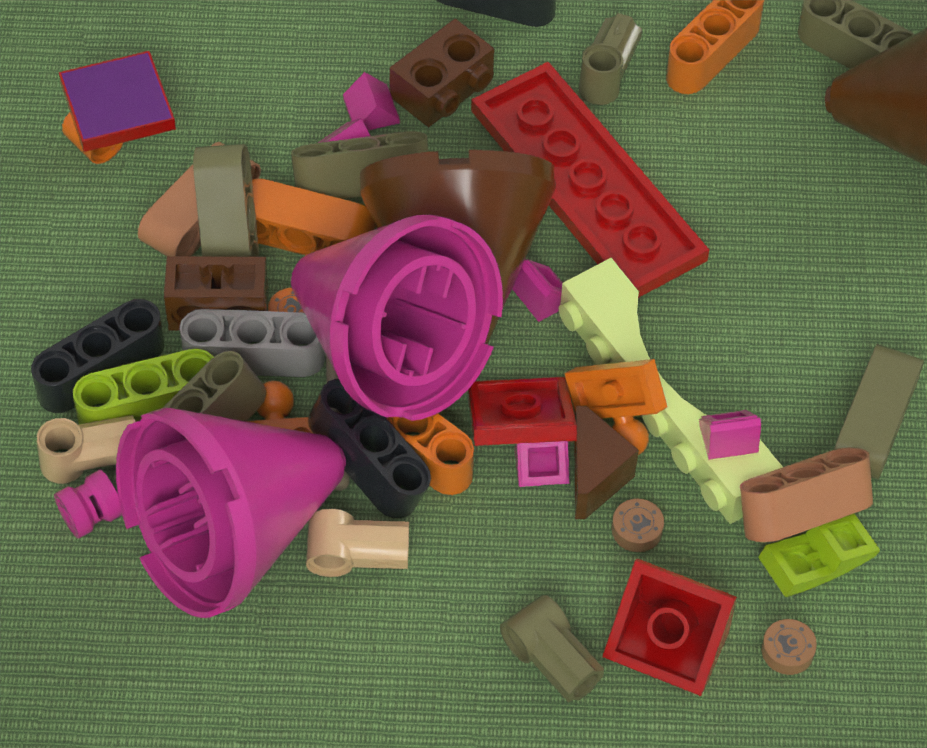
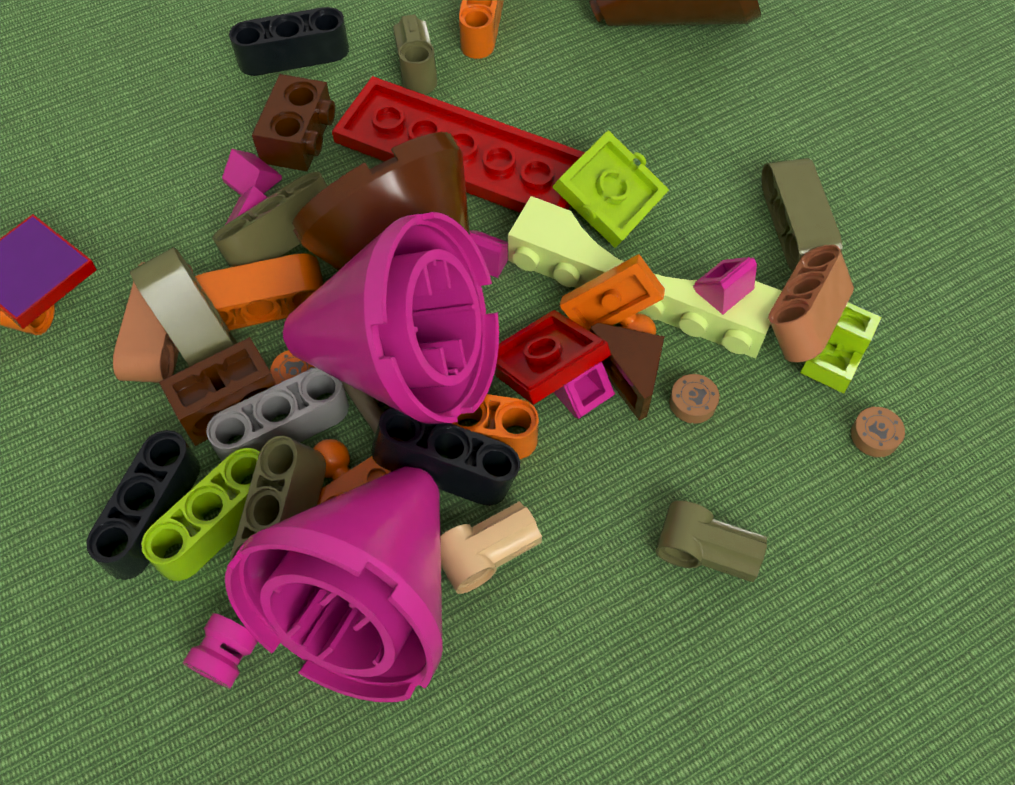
camera: 30 degrees left, 5 degrees up
(87, 444) = (188, 590): tan piece -> none
(670, 627) = (789, 469): red slope -> none
(700, 290) = (611, 188): none -> lime plate

